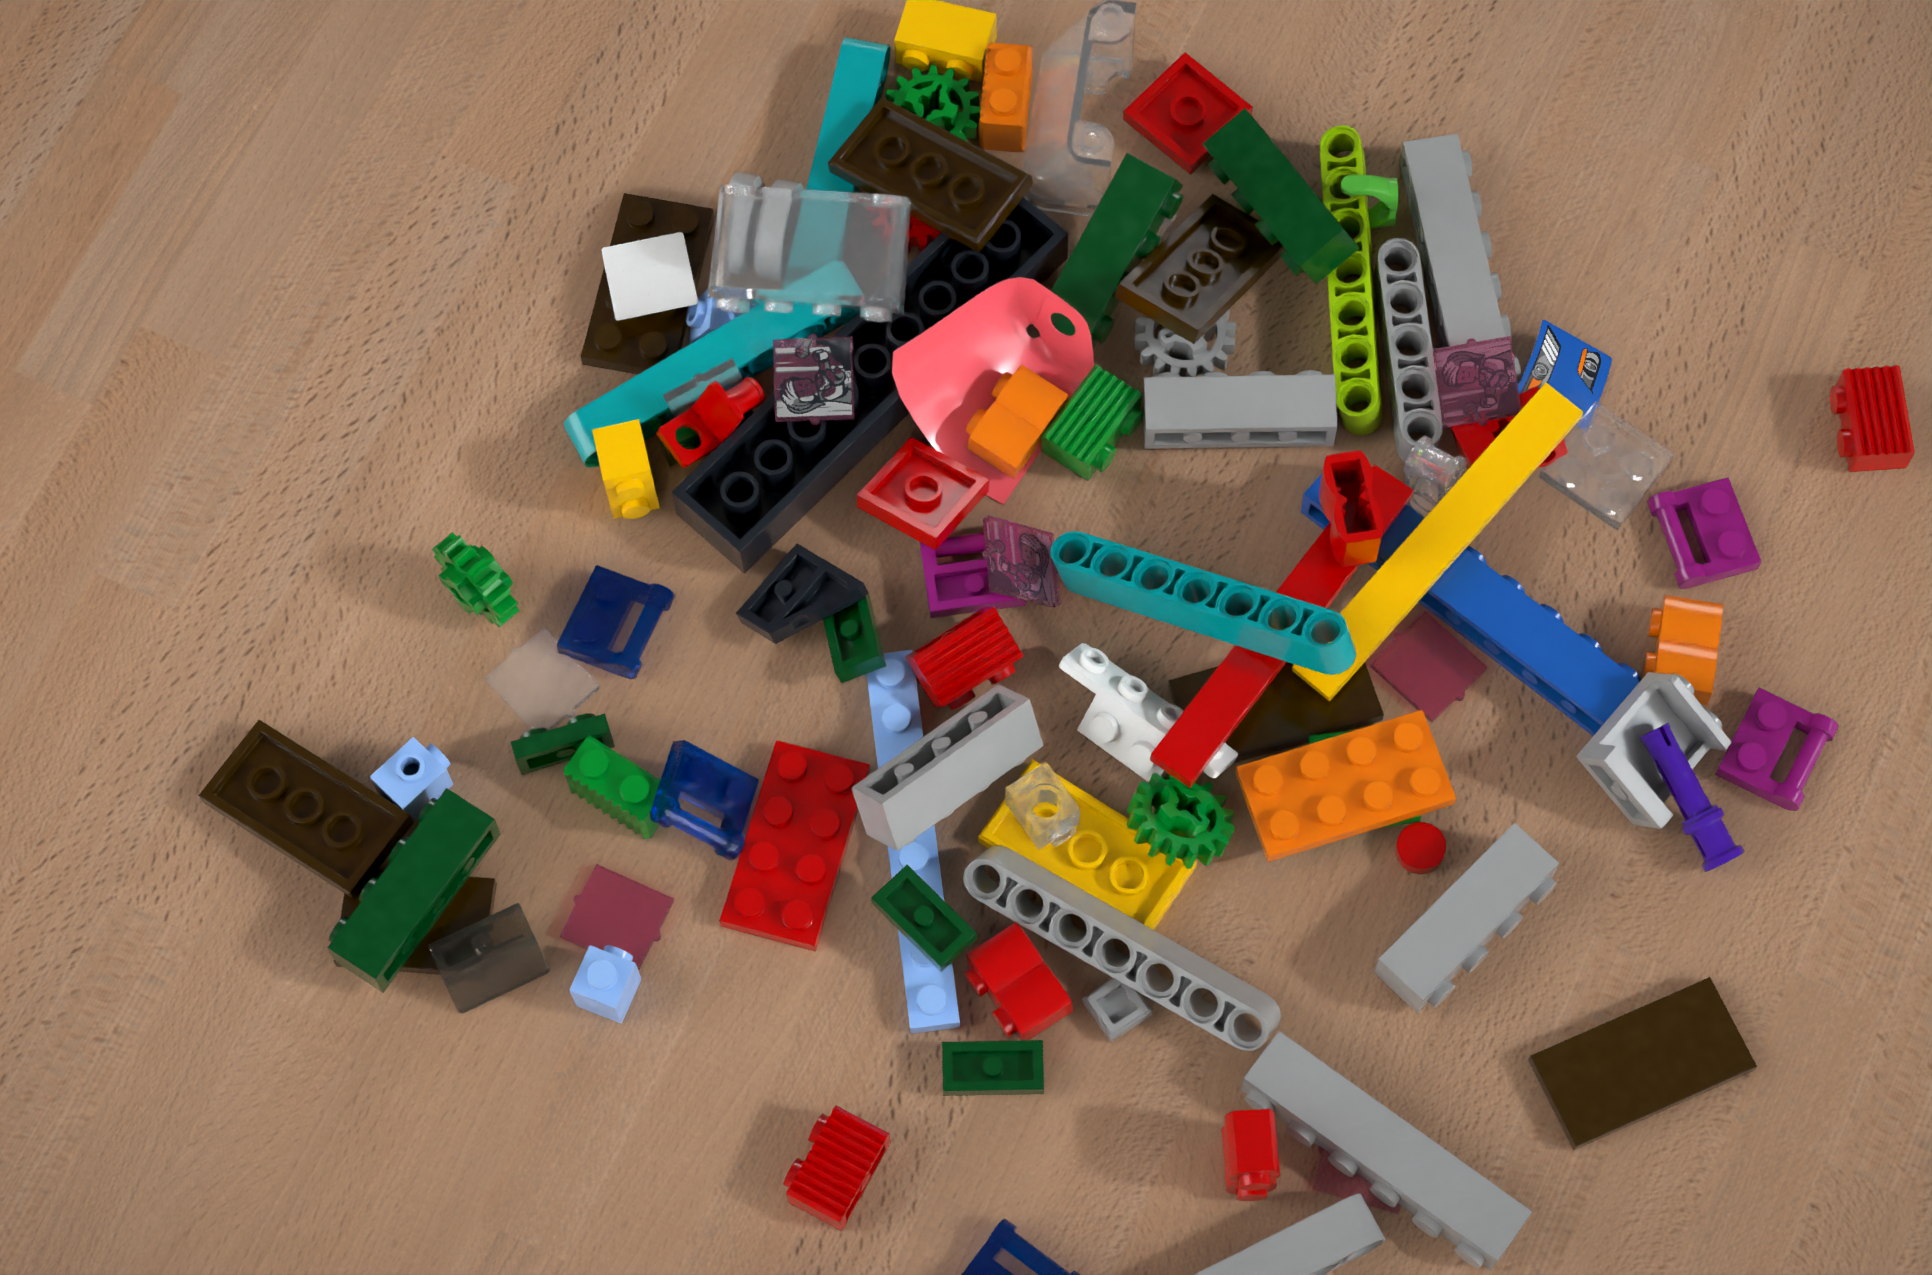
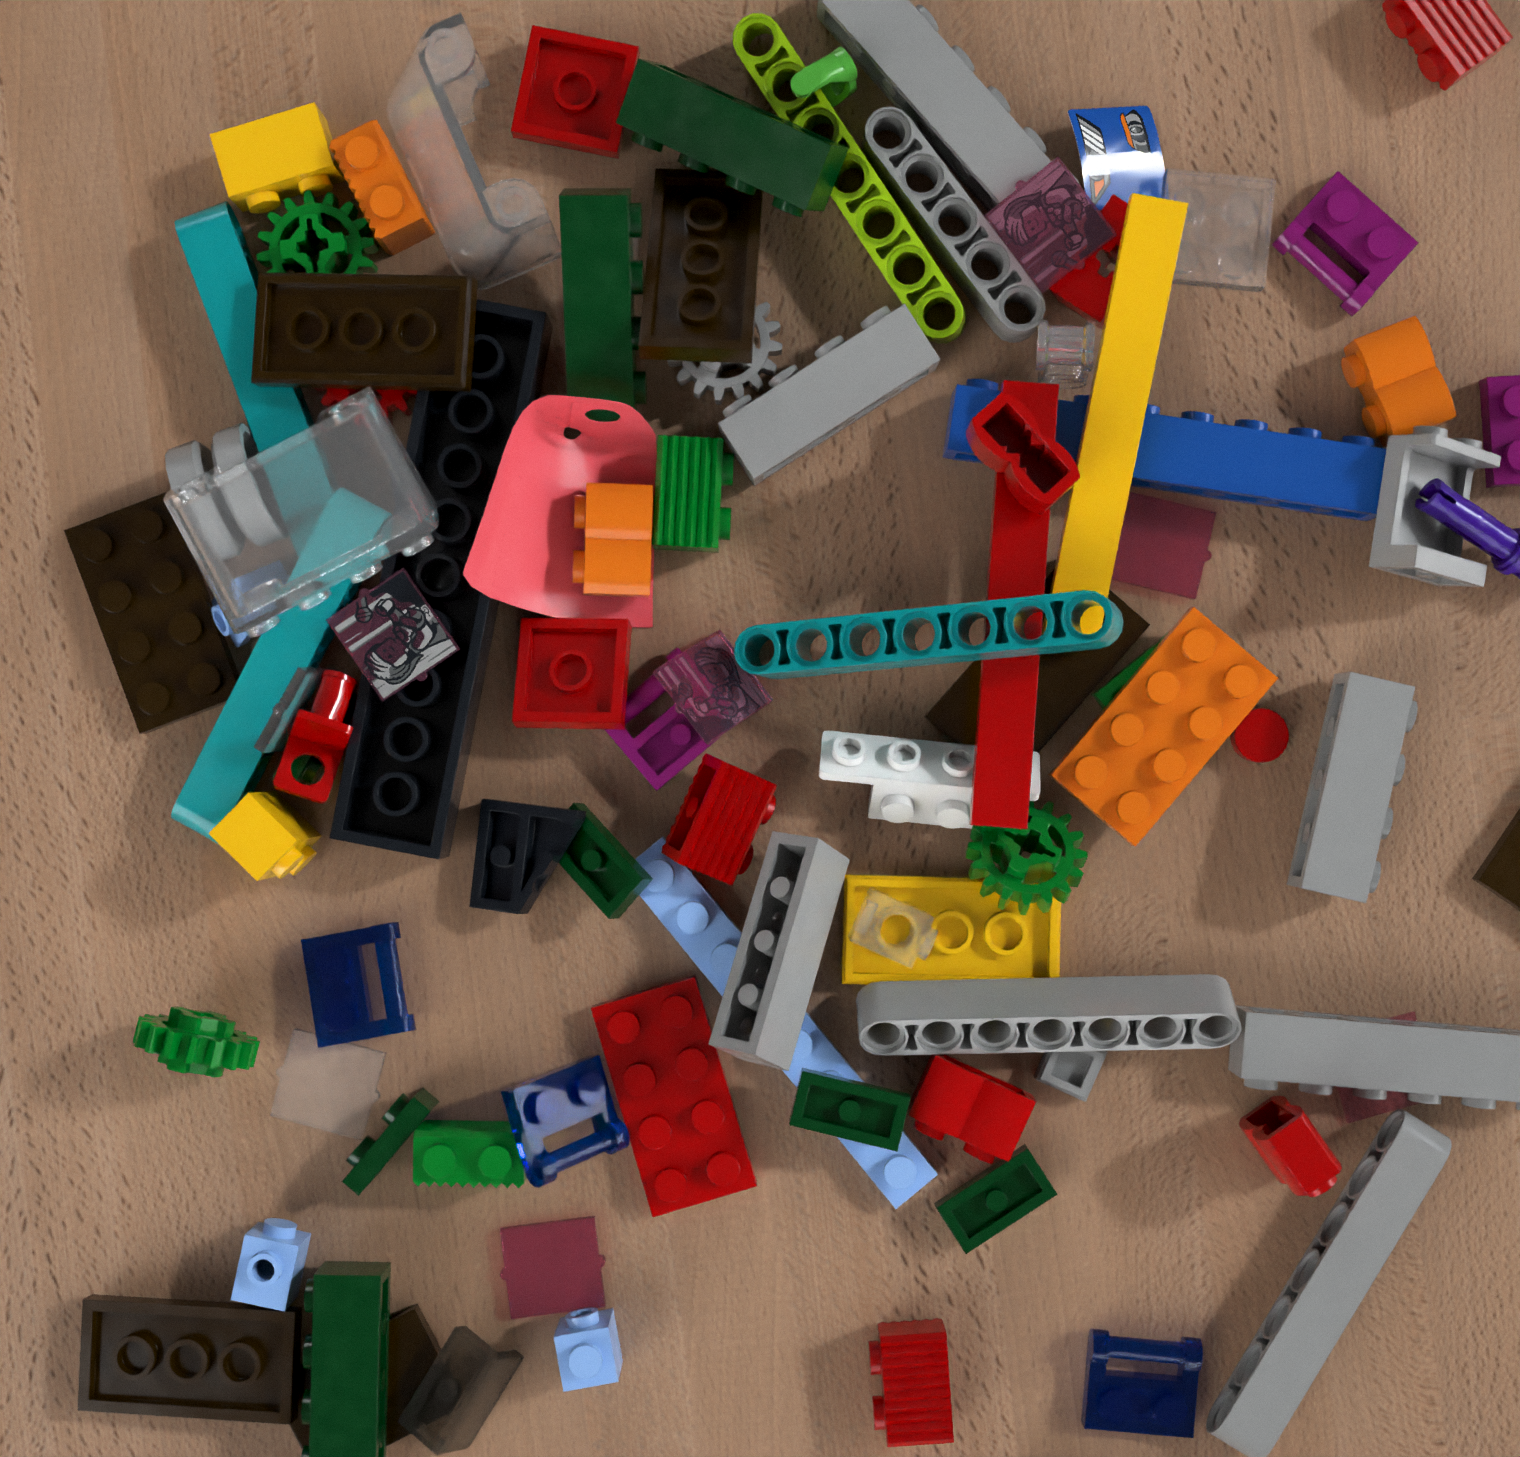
camera: 35 degrees left, 20 degrees up
(649, 276) = (152, 610): white sticker -> none

